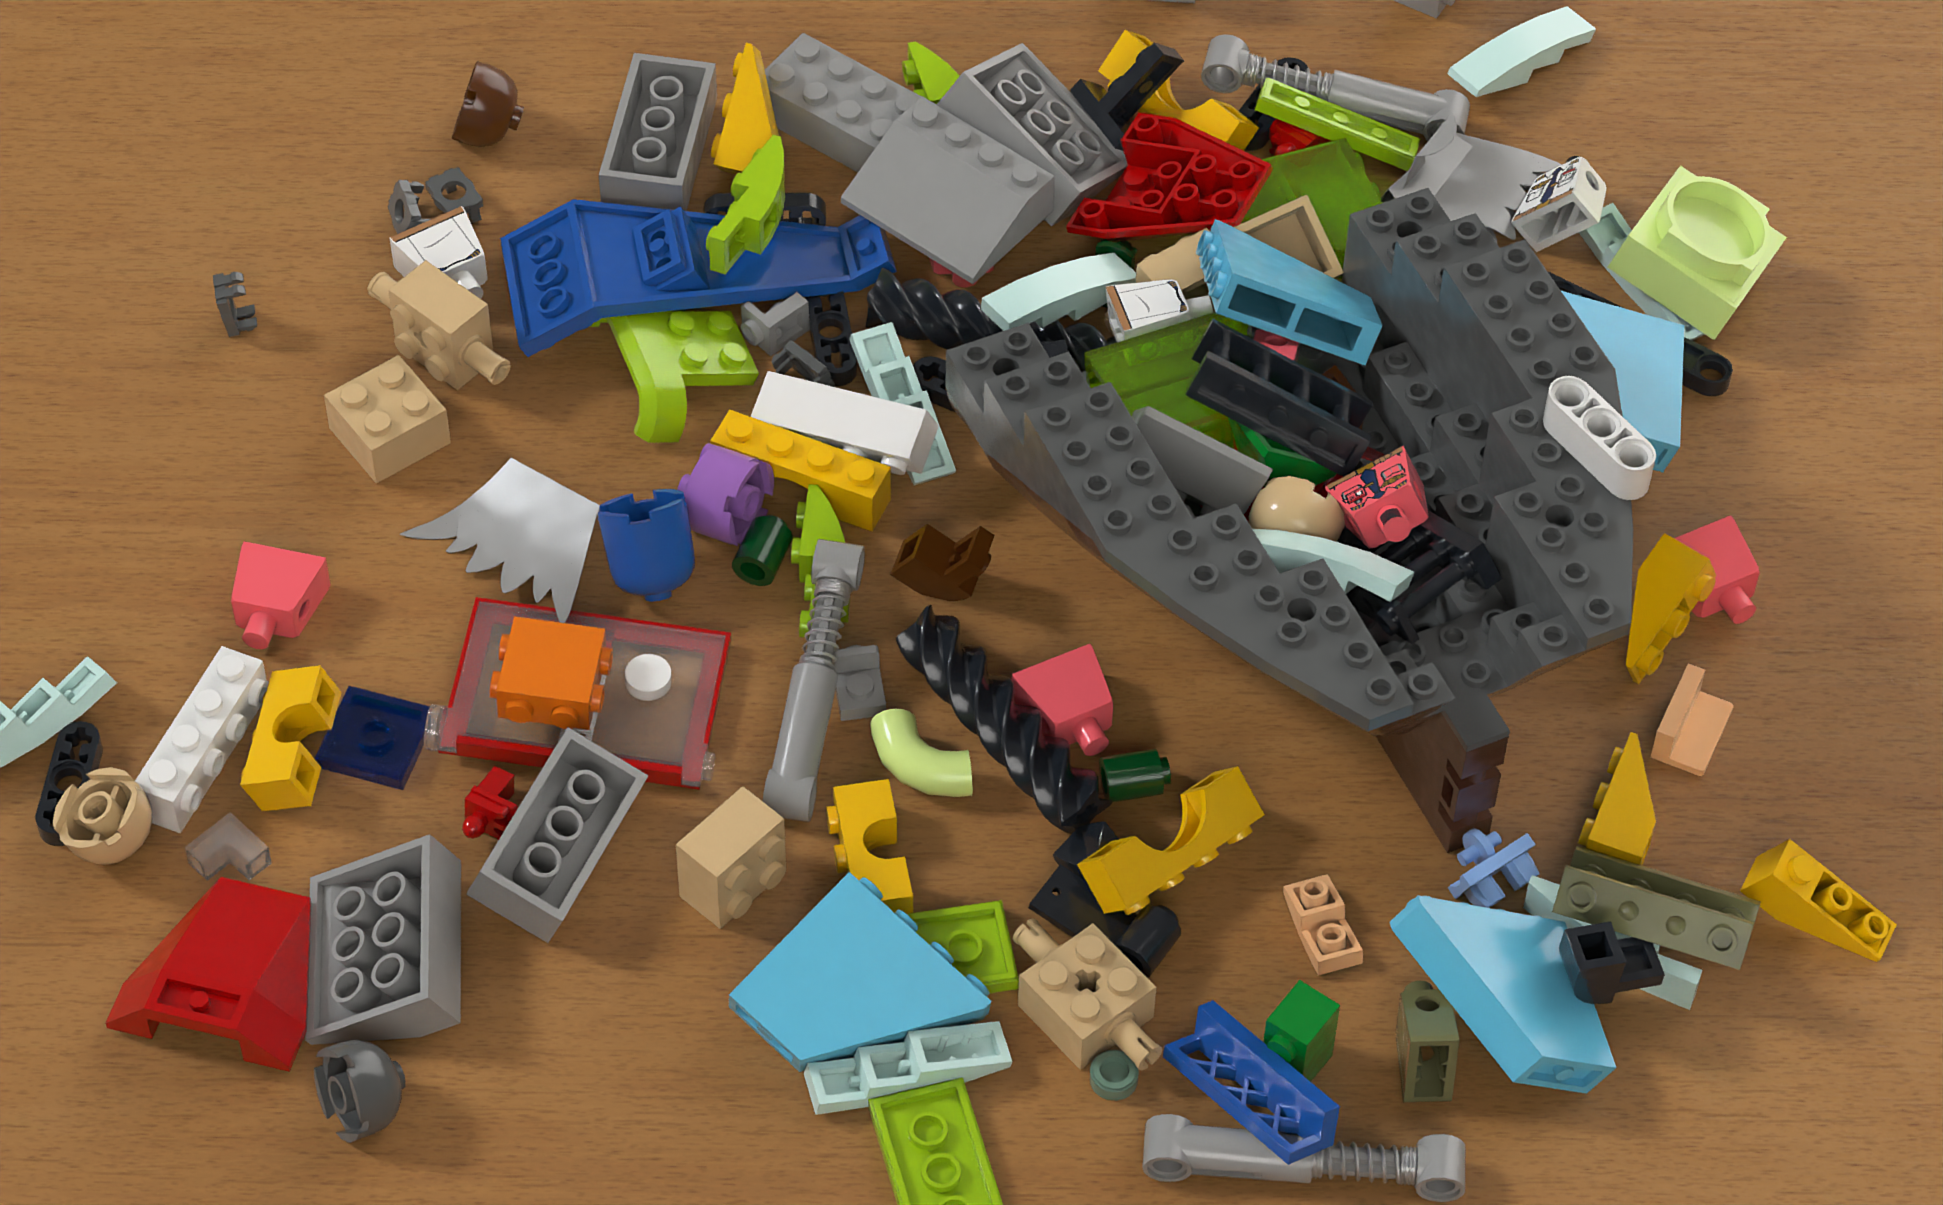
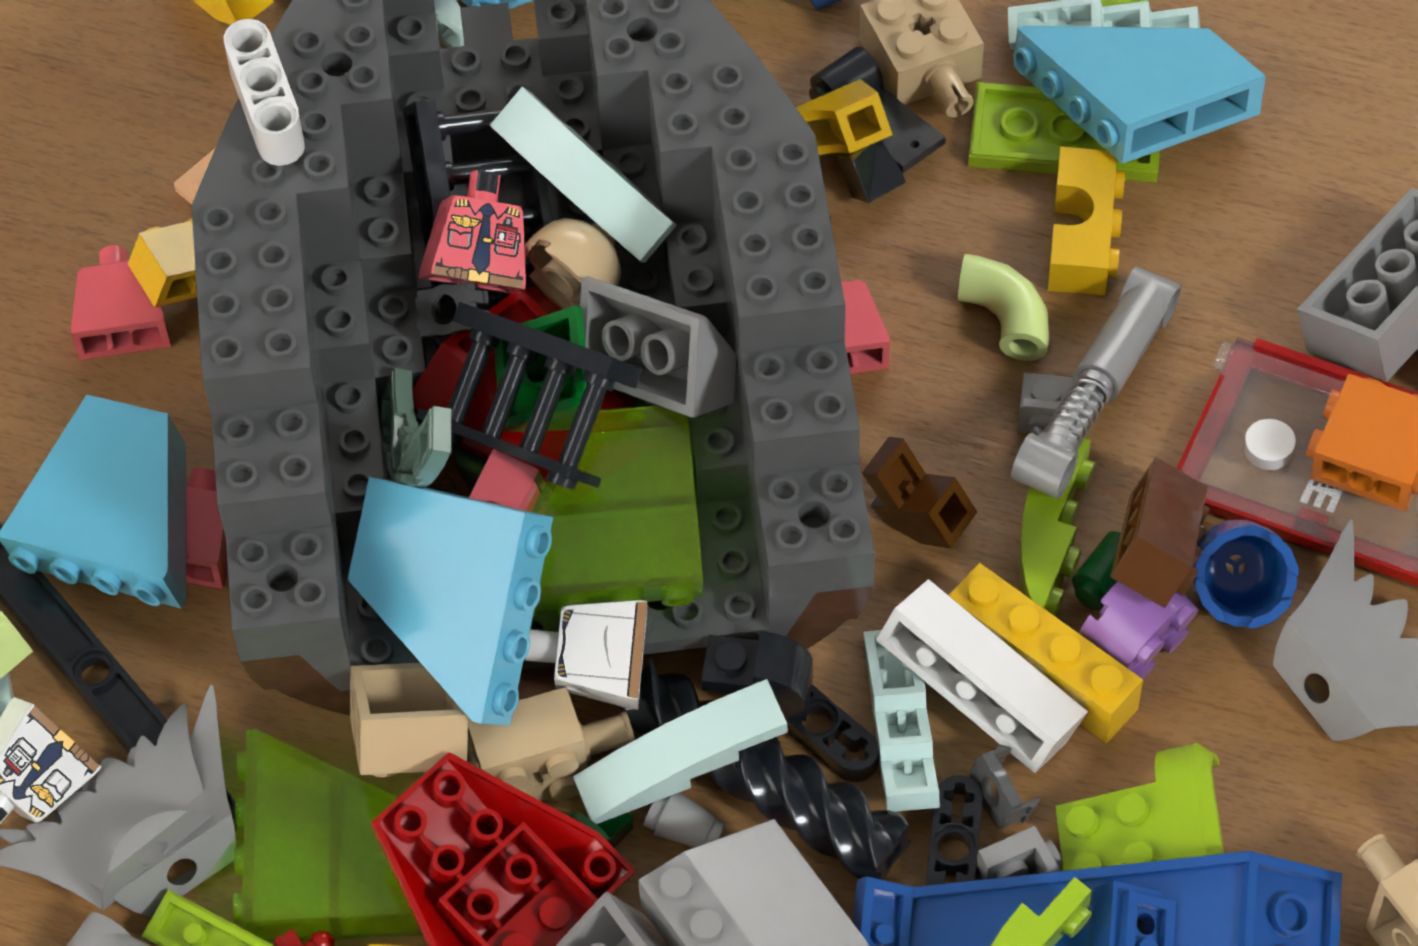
camera: 160 degrees left, 5 degrees up
(722, 532) = (1161, 534): none -> reddish brown brick
(731, 858) = (1228, 221): tan piece -> none
(1006, 730) = (911, 314): black piece -> none
(1358, 349) = (416, 451): none -> sand green tile

